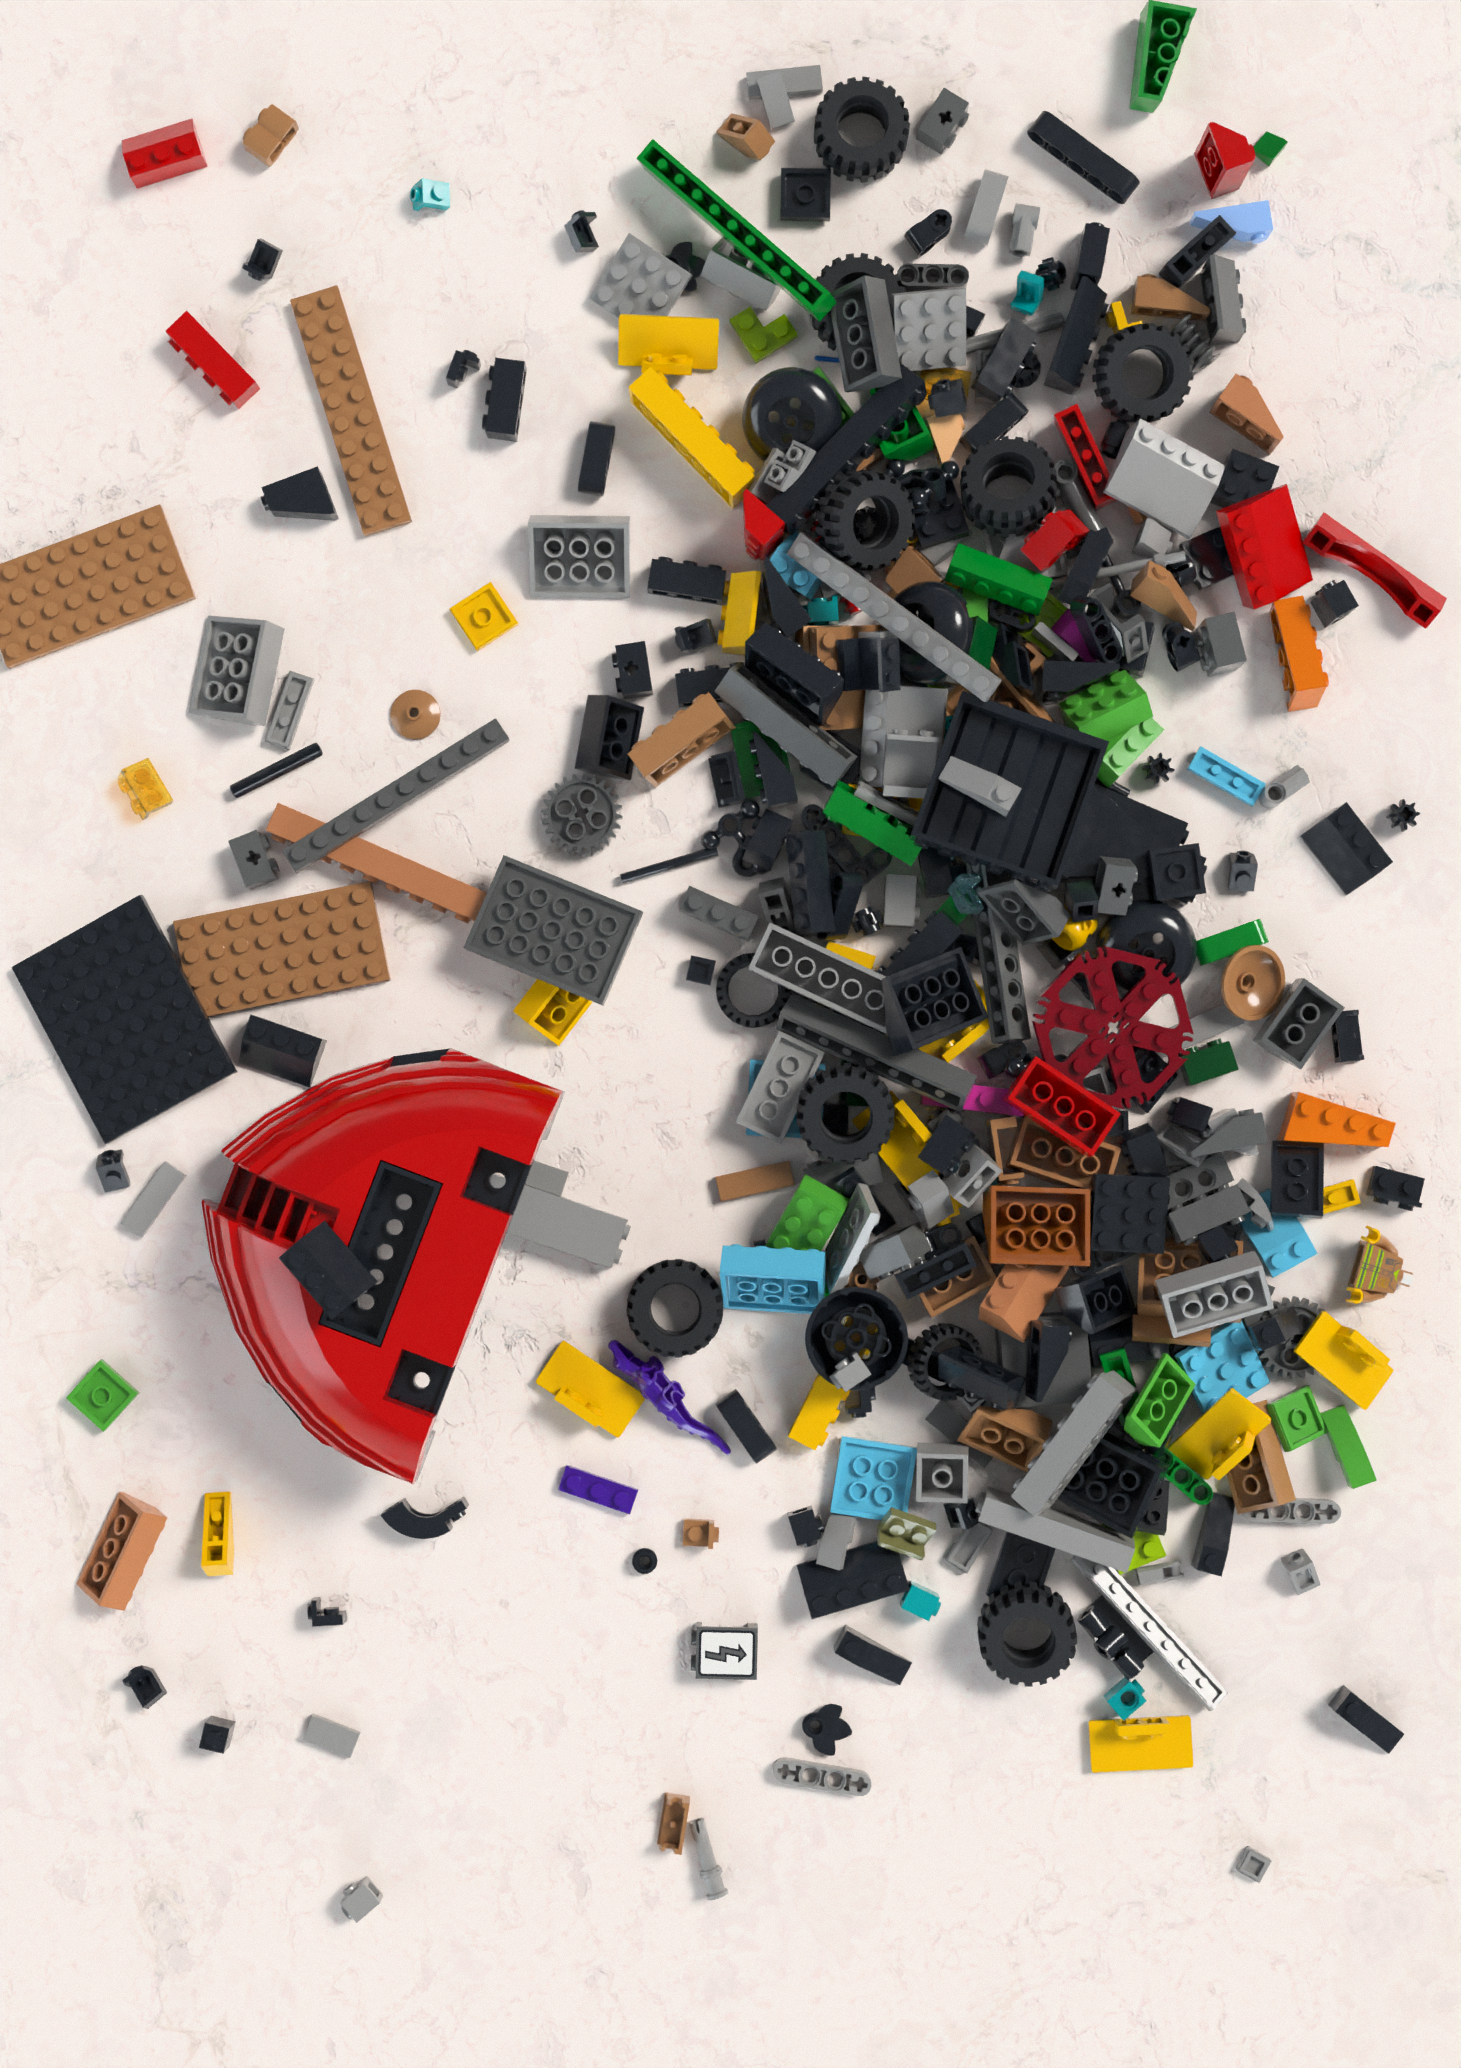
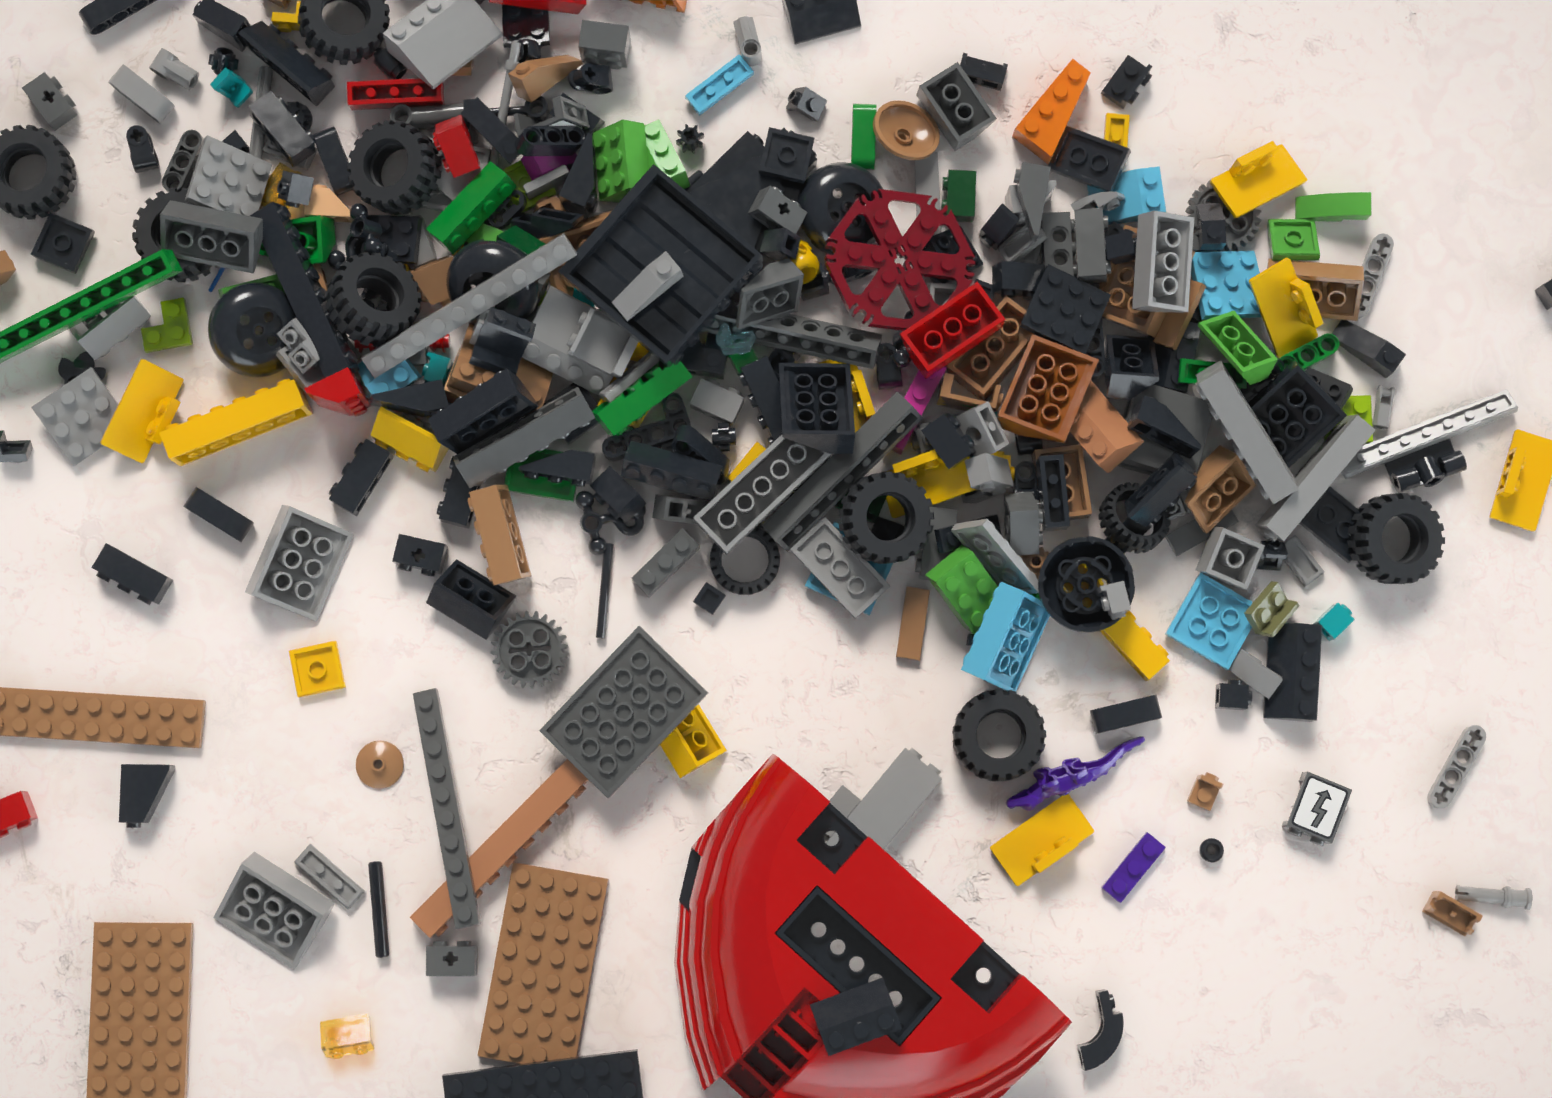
camera: 75 degrees left, 5 degrees down
(281, 1050) = (634, 1002): black slope -> none
(457, 370) = (87, 606): black bracket -> none
(695, 636) = (412, 488): black bracket -> none
(726, 779) = (549, 510): black hinge -> none
(829, 1729) = (1418, 744): black plate -> none
(865, 1406) = (1144, 602): black bracket -> none
(871, 1655) = (1366, 682): black slope -> none
(1125, 1709) = (1490, 478): teal brick -> none
(1152, 540) = (490, 67): light grey slope -> none
(1301, 1571) = (1425, 287): light grey bracket -> none
(1376, 1269) = (1190, 124): medium nougat torso -> none

